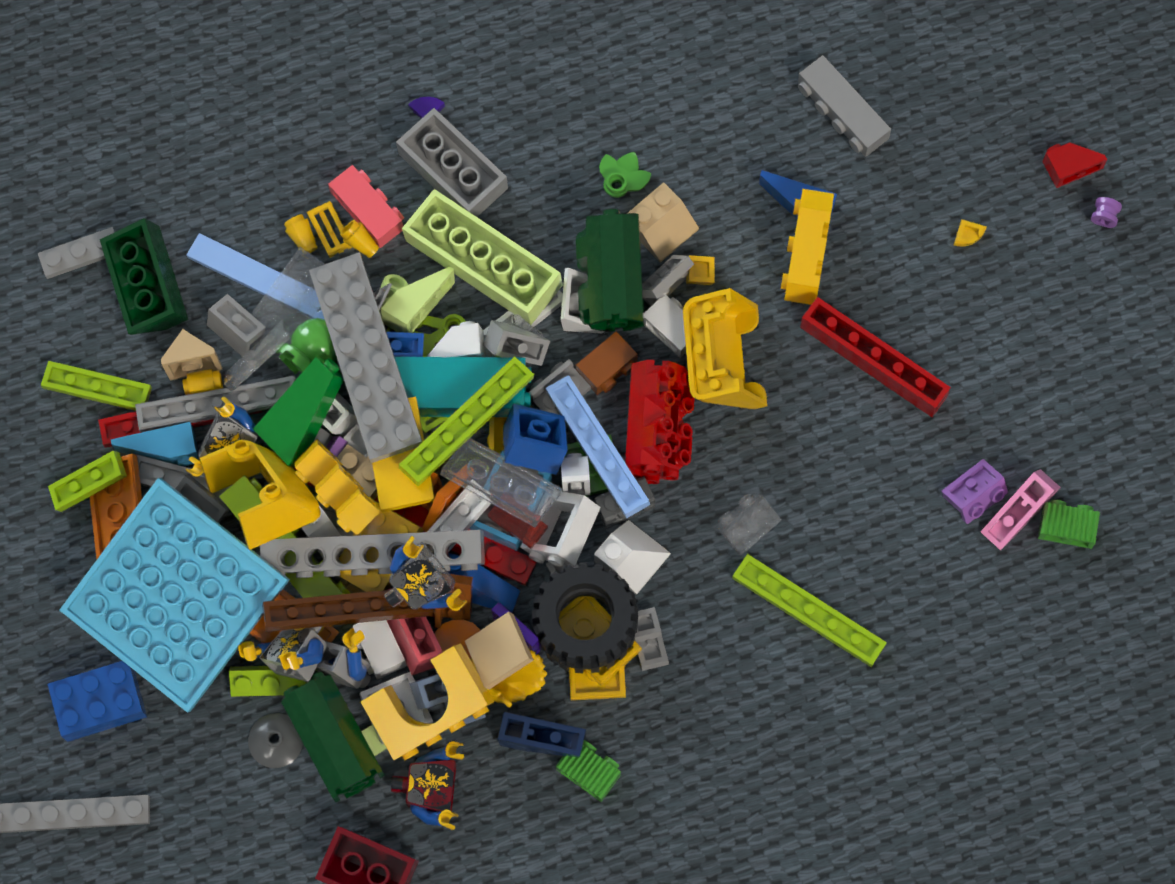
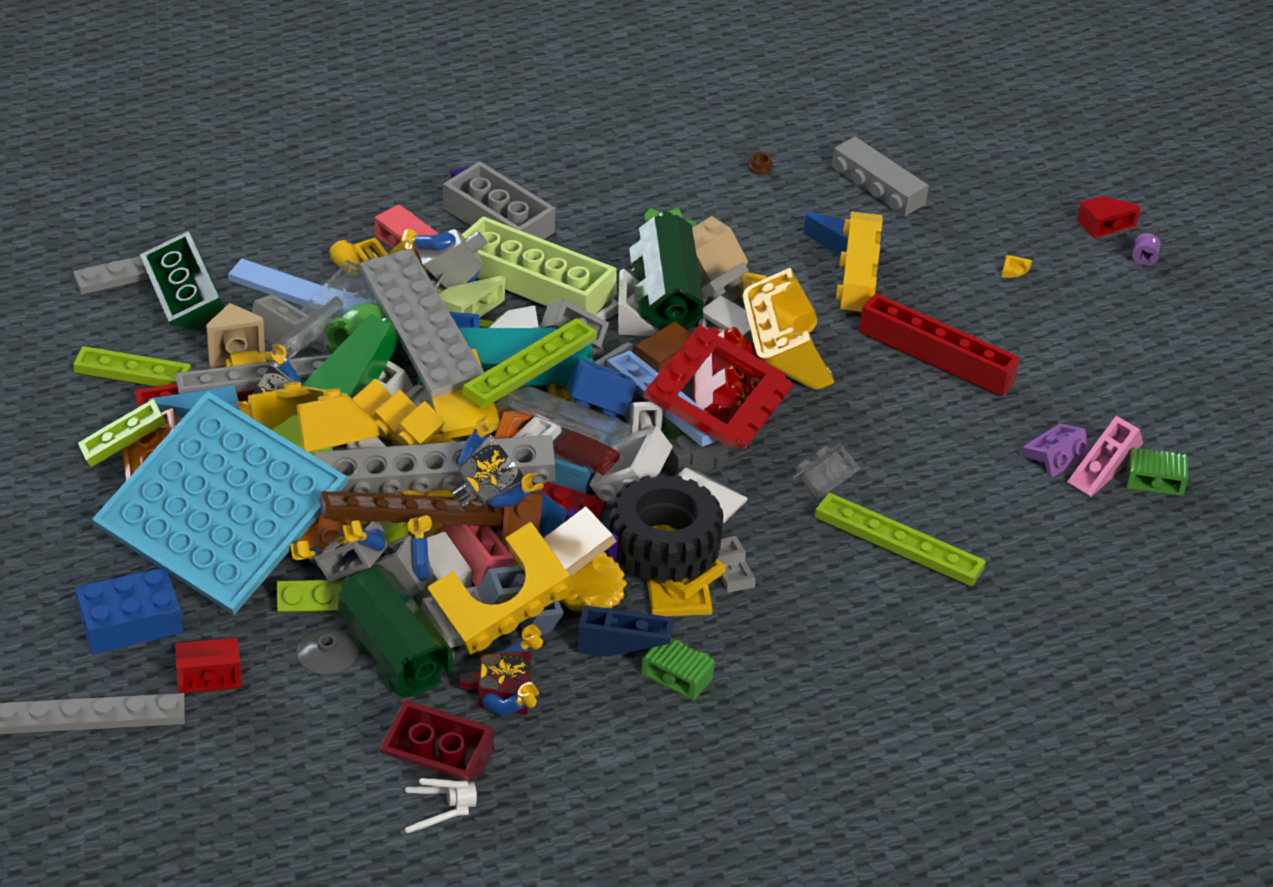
camera: 10 degrees left, 30 degrees down
(168, 760) = (208, 665): none -> red bracket
(394, 263) = (448, 254): none -> light grey torso
(611, 437) = (753, 411): none -> red hinge
(723, 85) = (760, 163): none -> reddish brown plate

